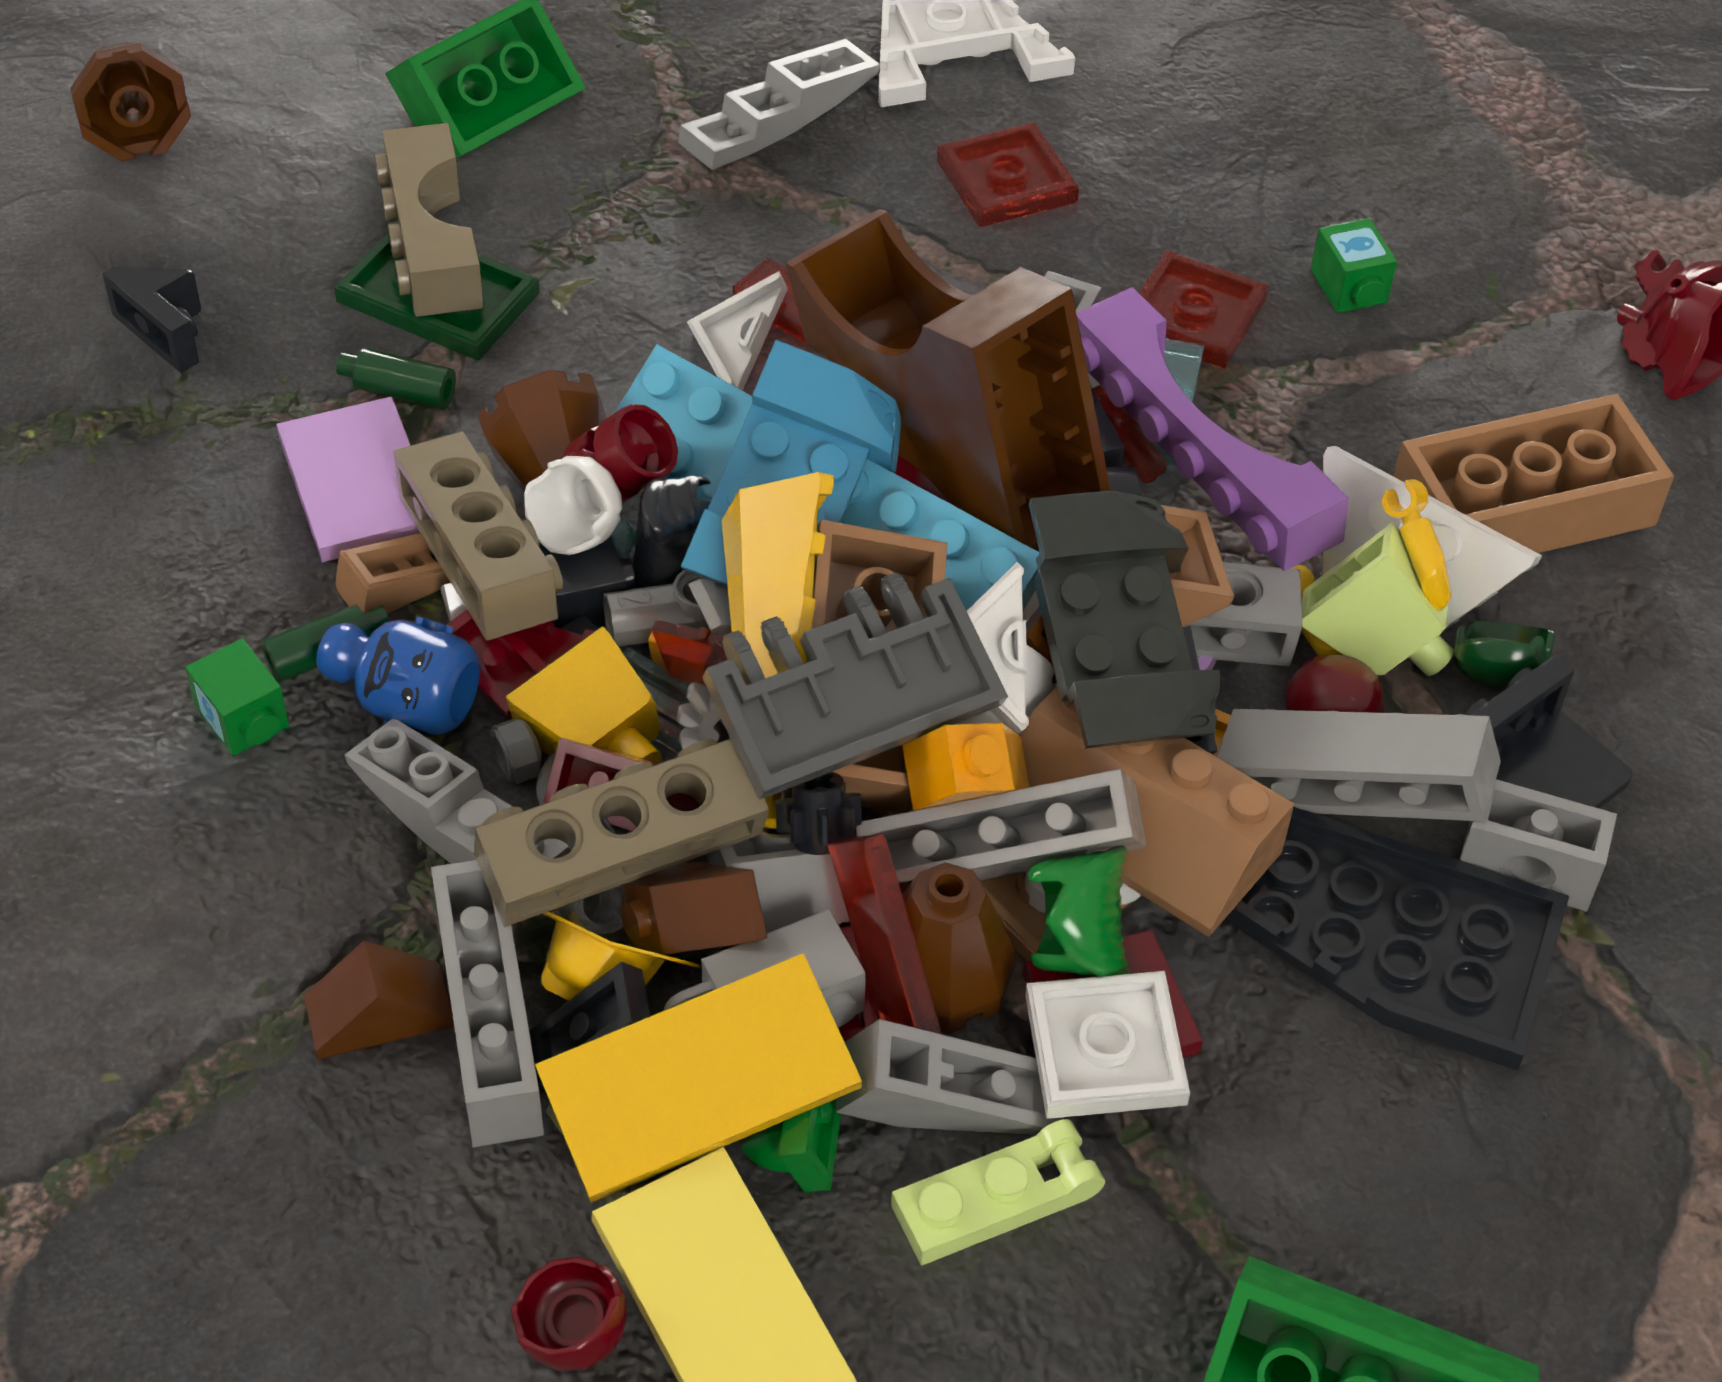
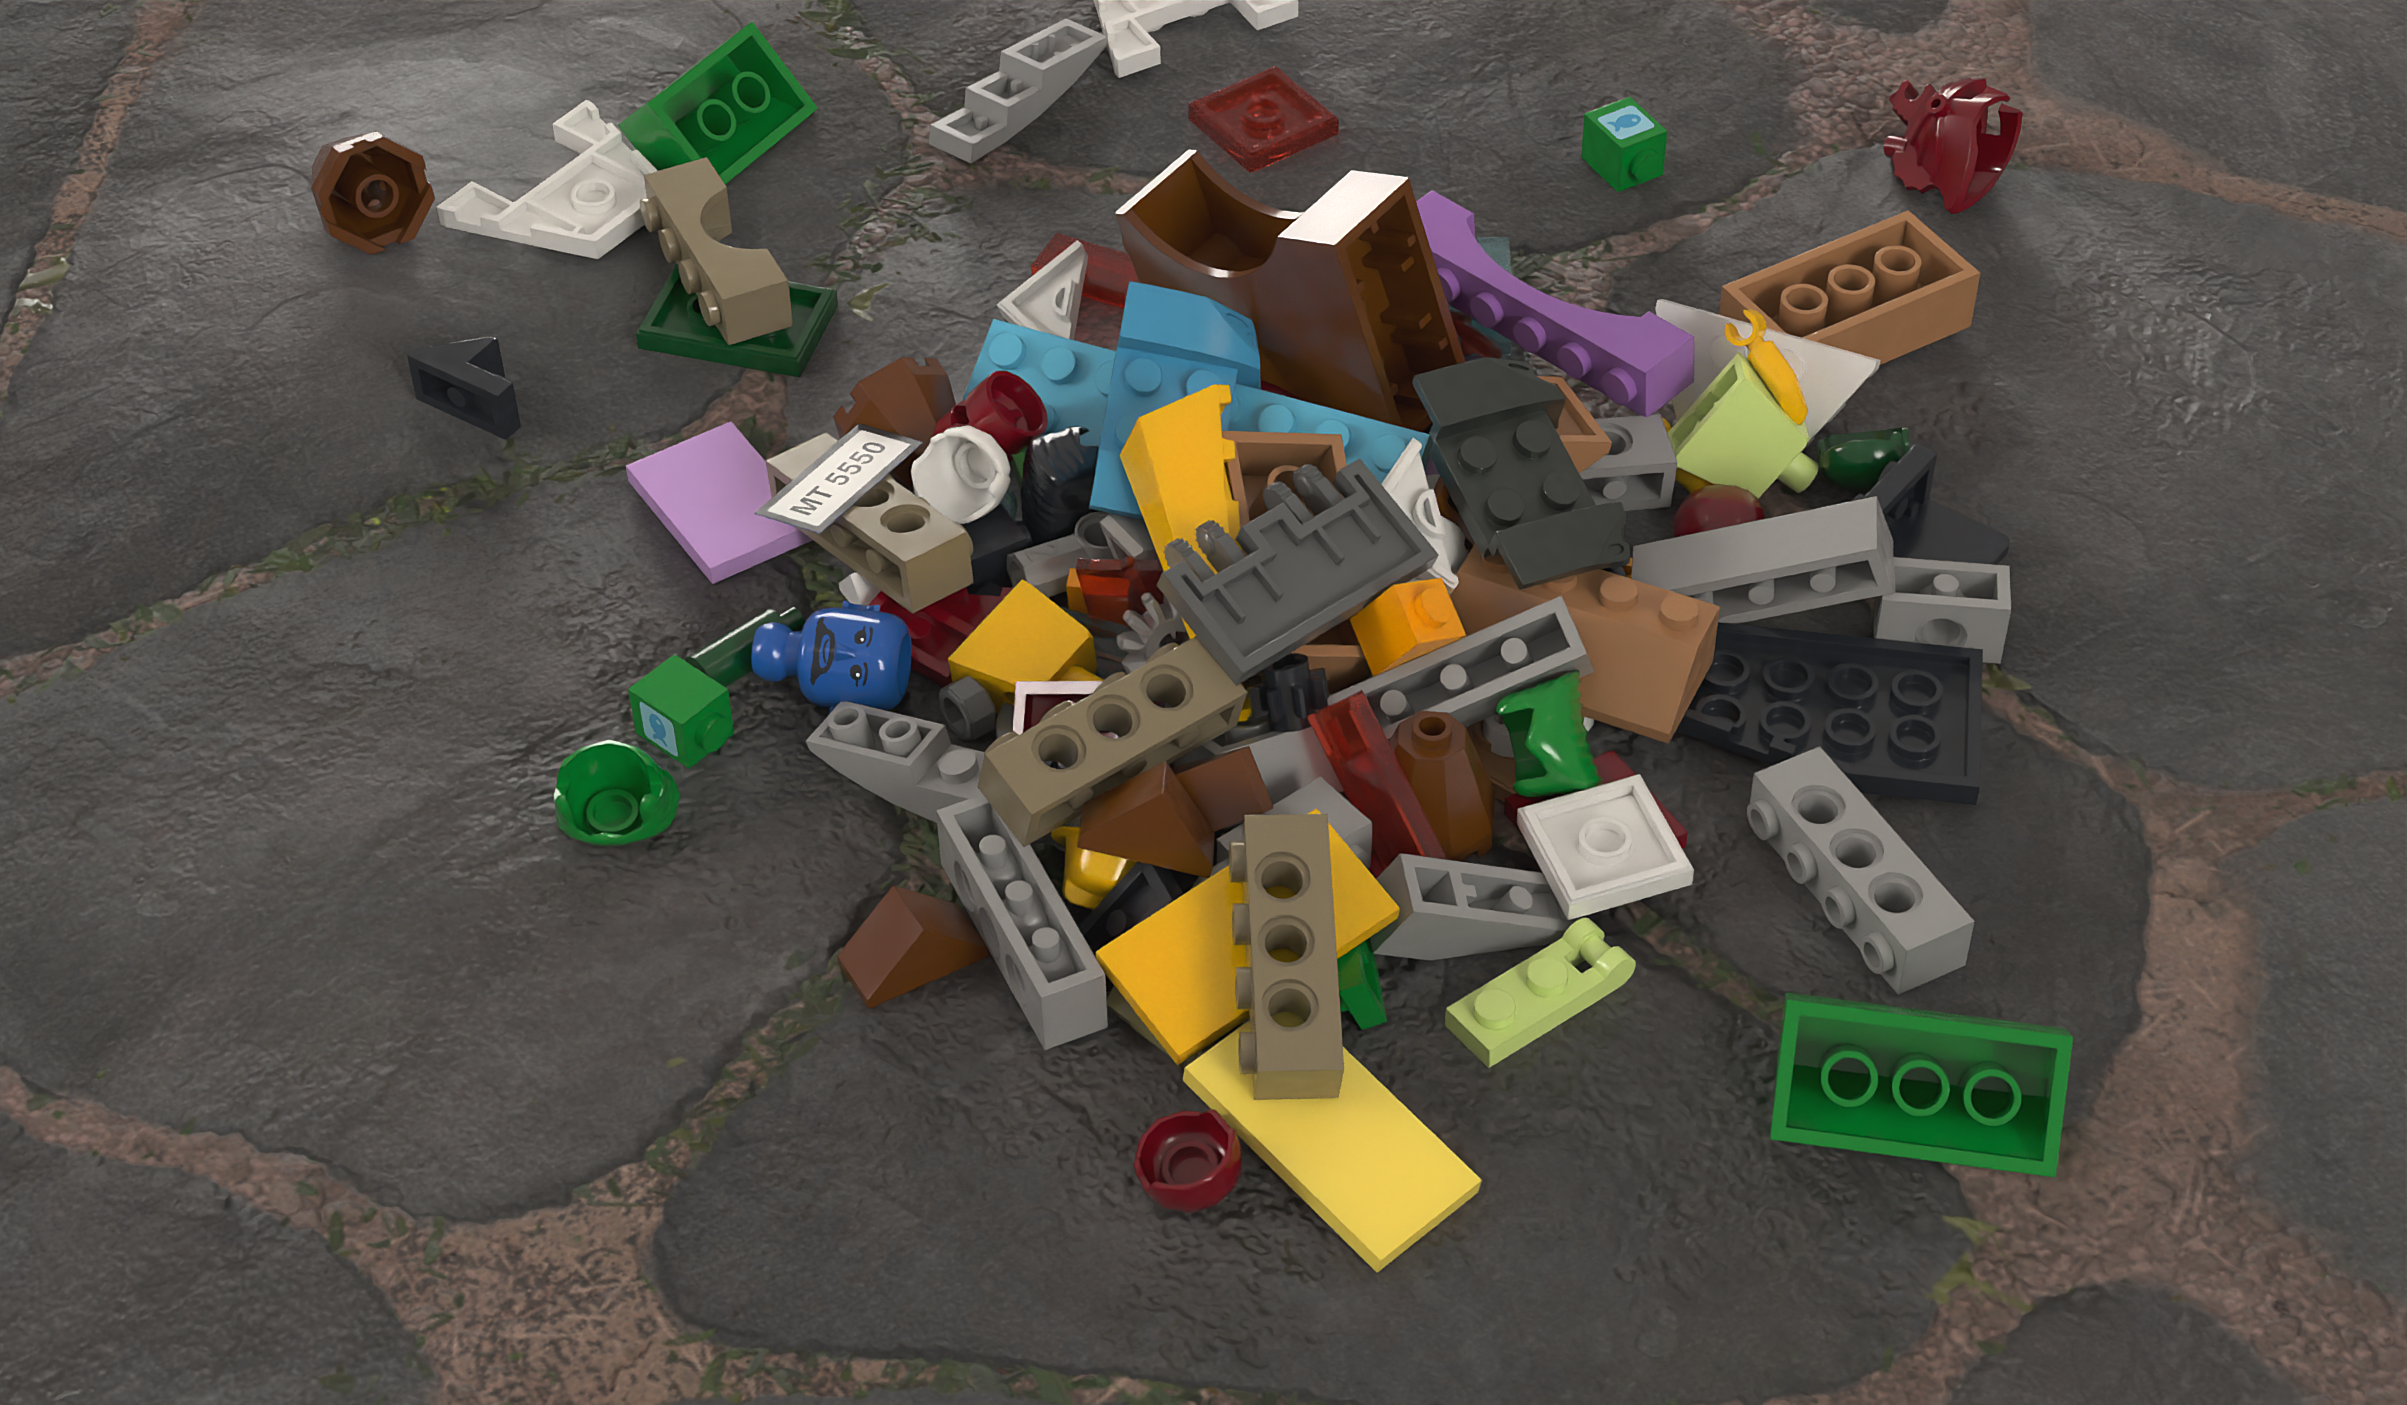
camera: 10 degrees left, 5 degrees down
(141, 777) = (614, 795): none -> green hair
(324, 150) = (574, 211): none -> white wing
(384, 575) = (787, 578): medium nougat slope -> none
(399, 377) = (731, 401): dark green cylinder -> none
(453, 485) = (838, 478): none -> sticker
(632, 933) = (1149, 823): none -> reddish brown slope
(718, 1233) = (1295, 855): none -> dark tan brick
(1204, 304) = (1501, 200): clear red tile -> none
(1395, 1227) = (1859, 870): none -> light grey brick

